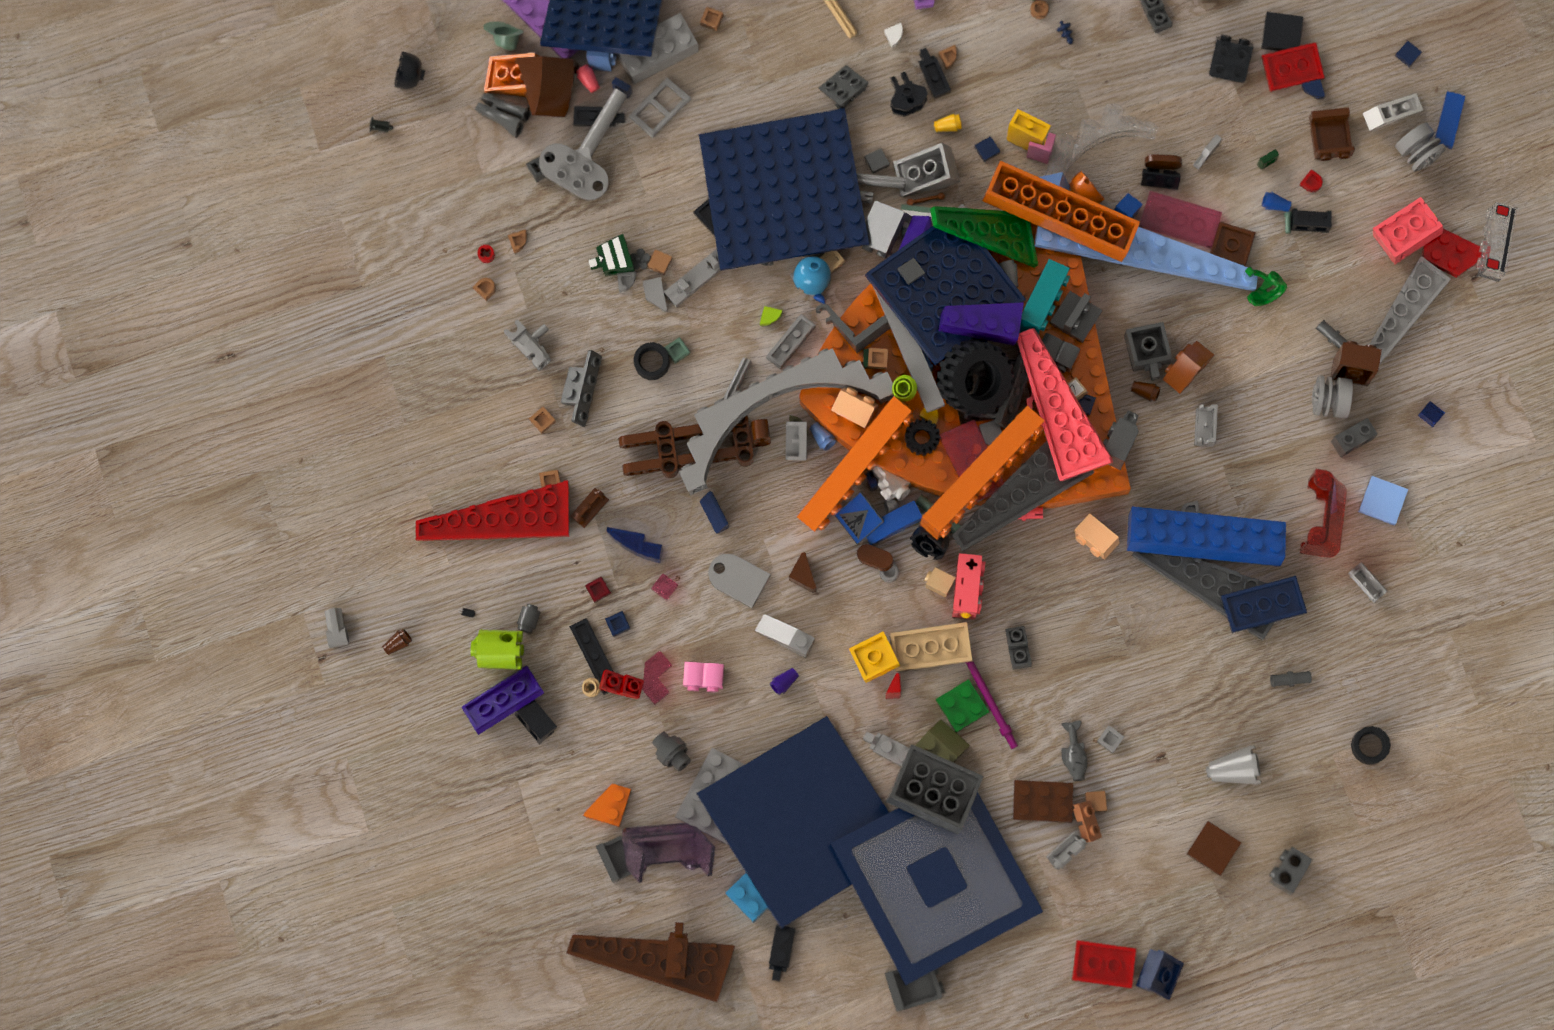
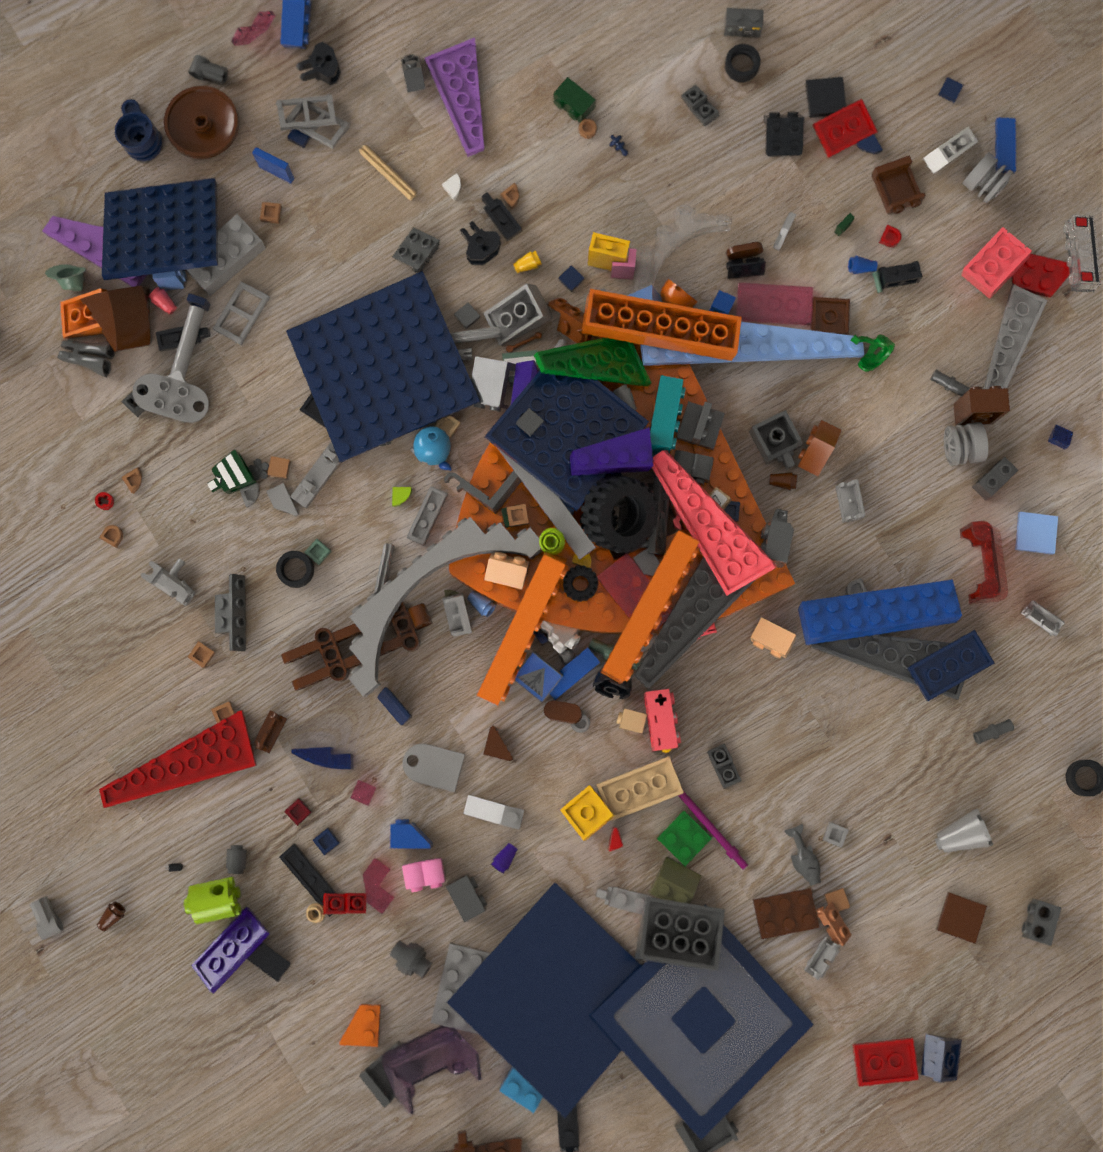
camera: 20 degrees left, 5 degrees up
(697, 635) = (408, 836): none -> blue slope
(738, 708) = (466, 897): none -> dark grey brick
(975, 187) = (570, 320): none -> dark orange bracket

